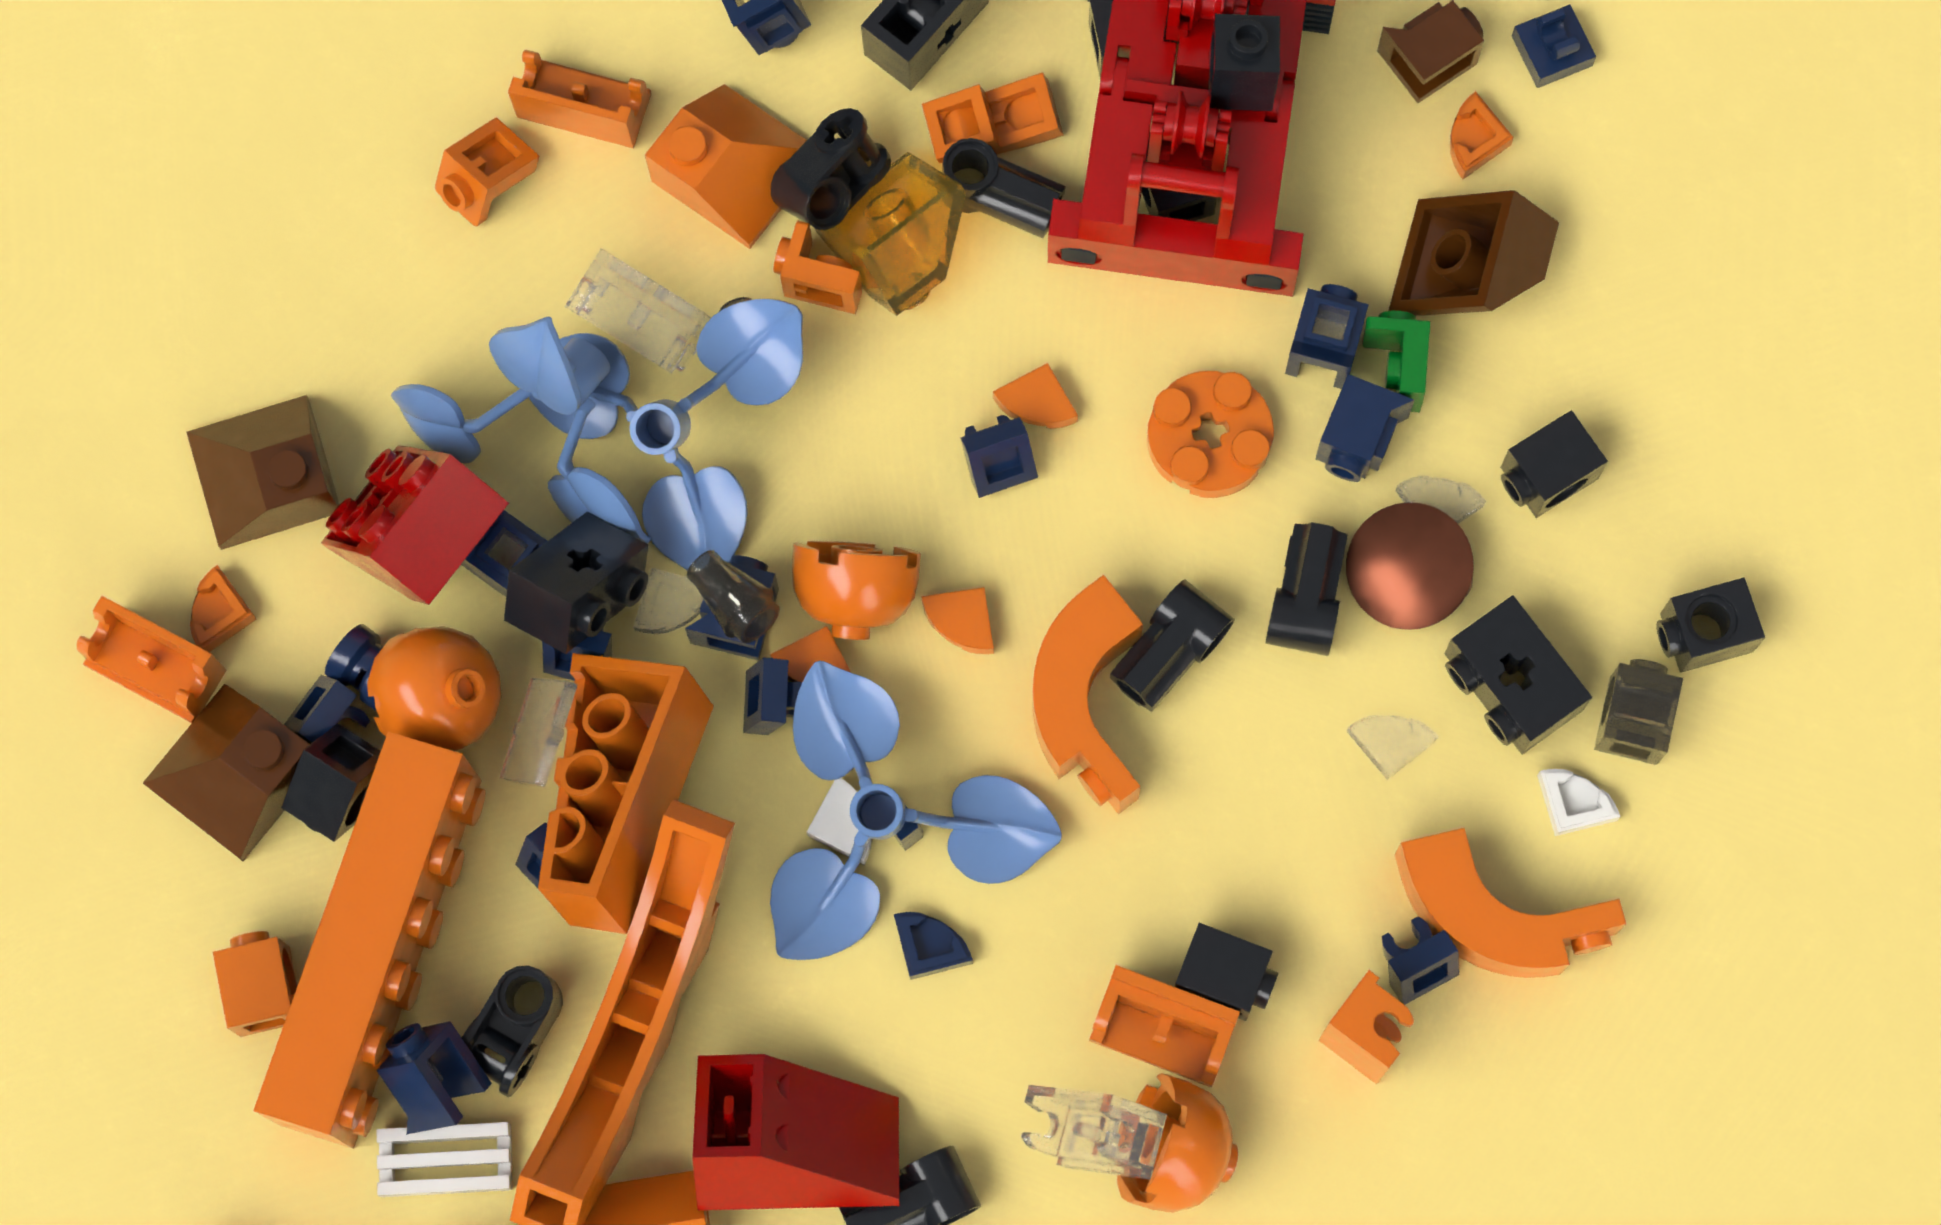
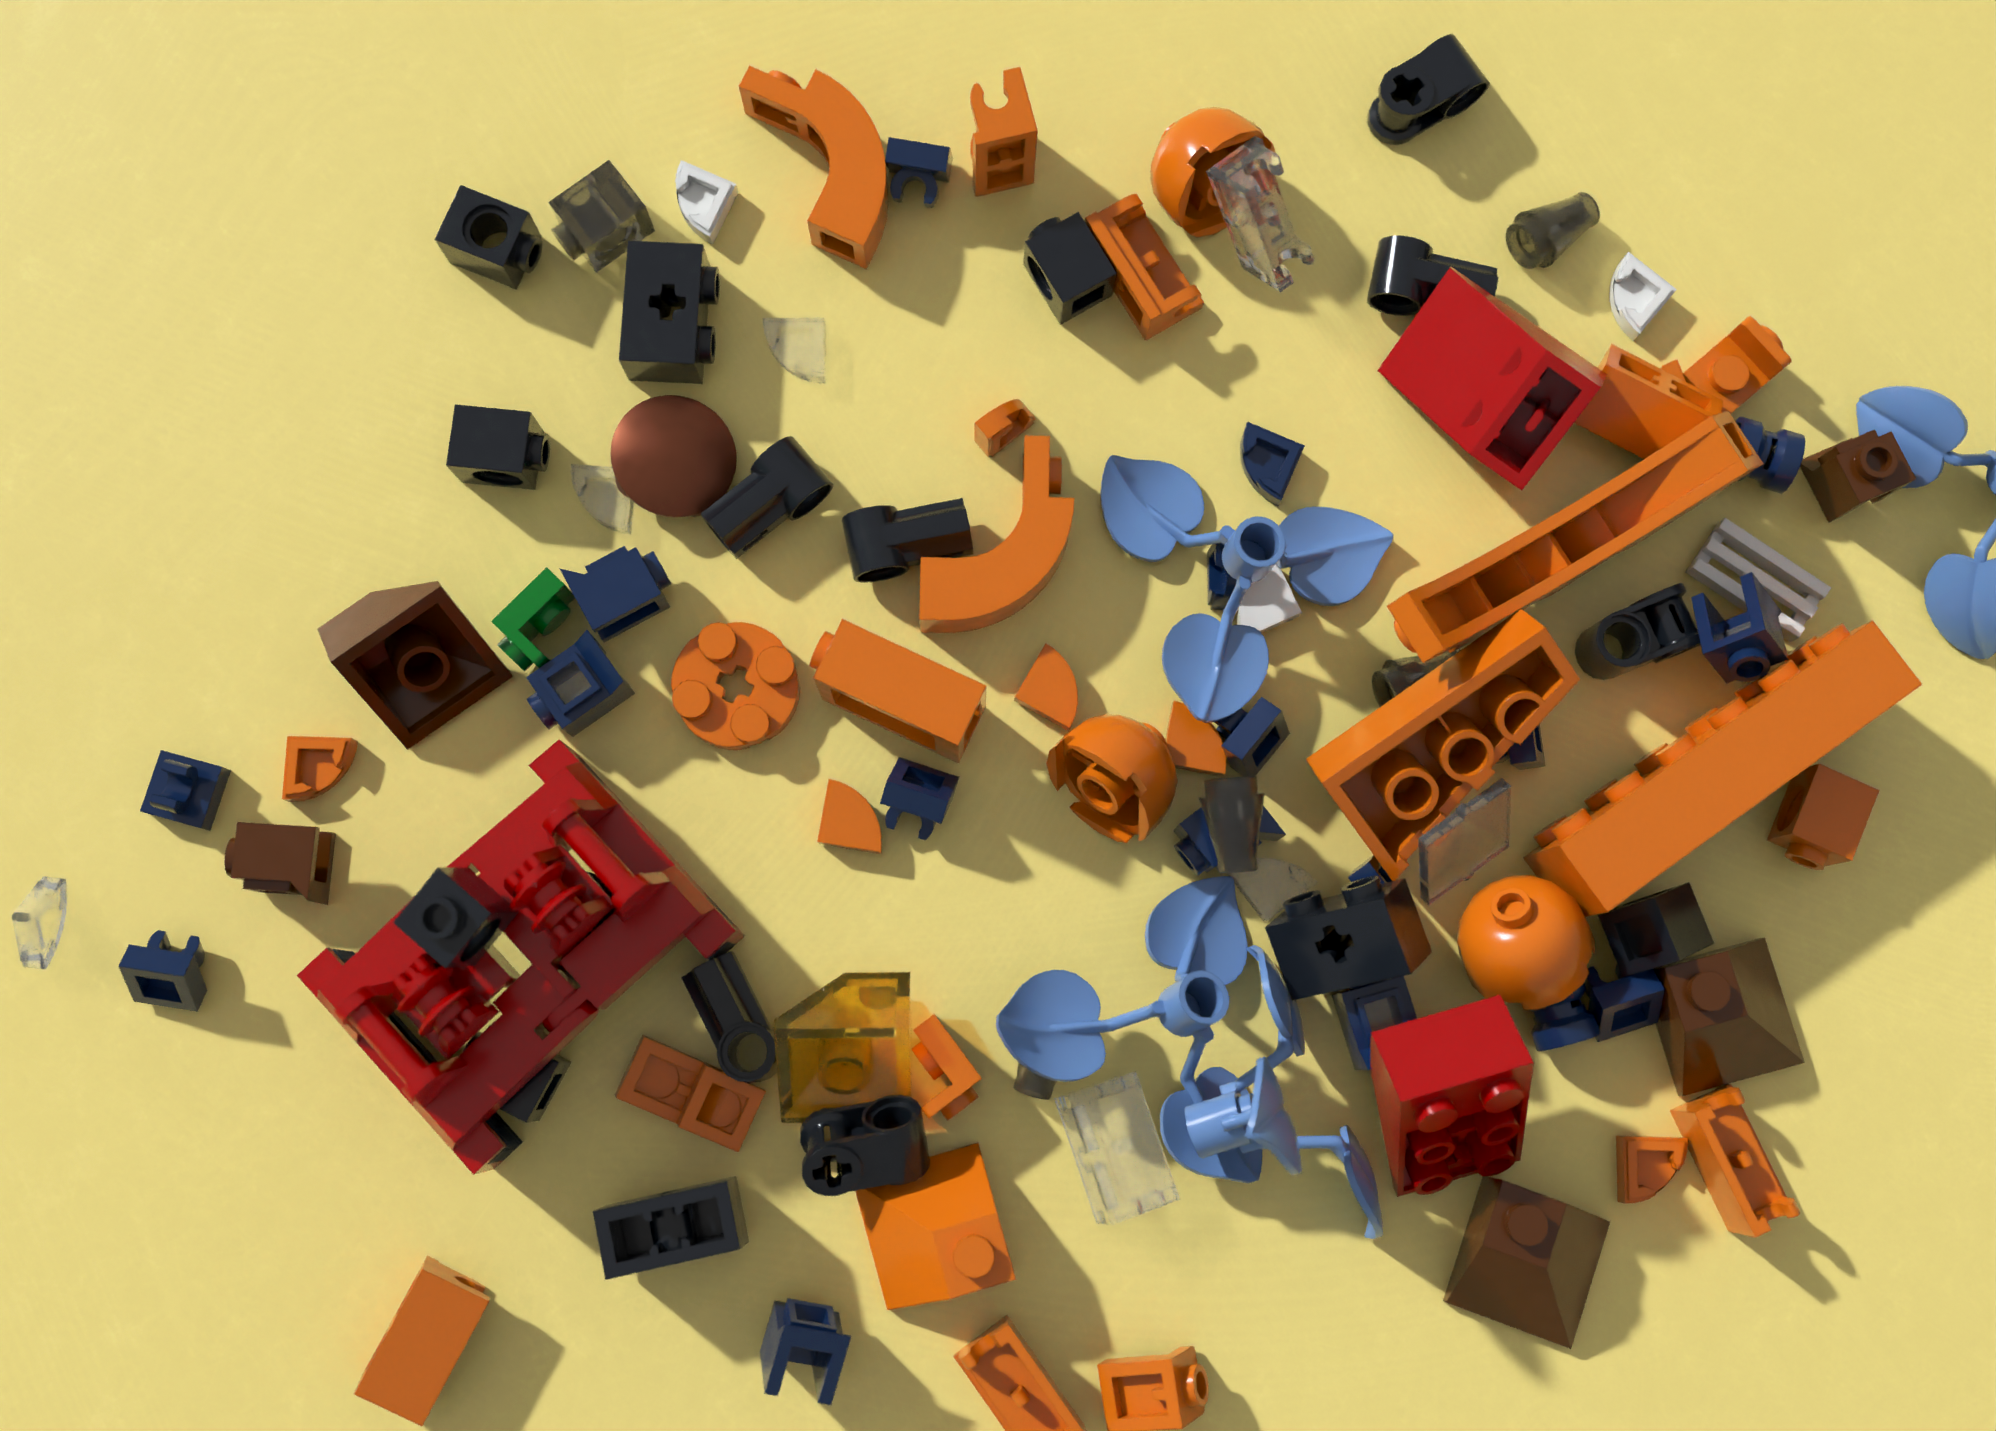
camera: 150 degrees left, 5 degrees up
(1074, 506) = (898, 689): none -> orange window
(1168, 799) = (1002, 426): none -> orange tile

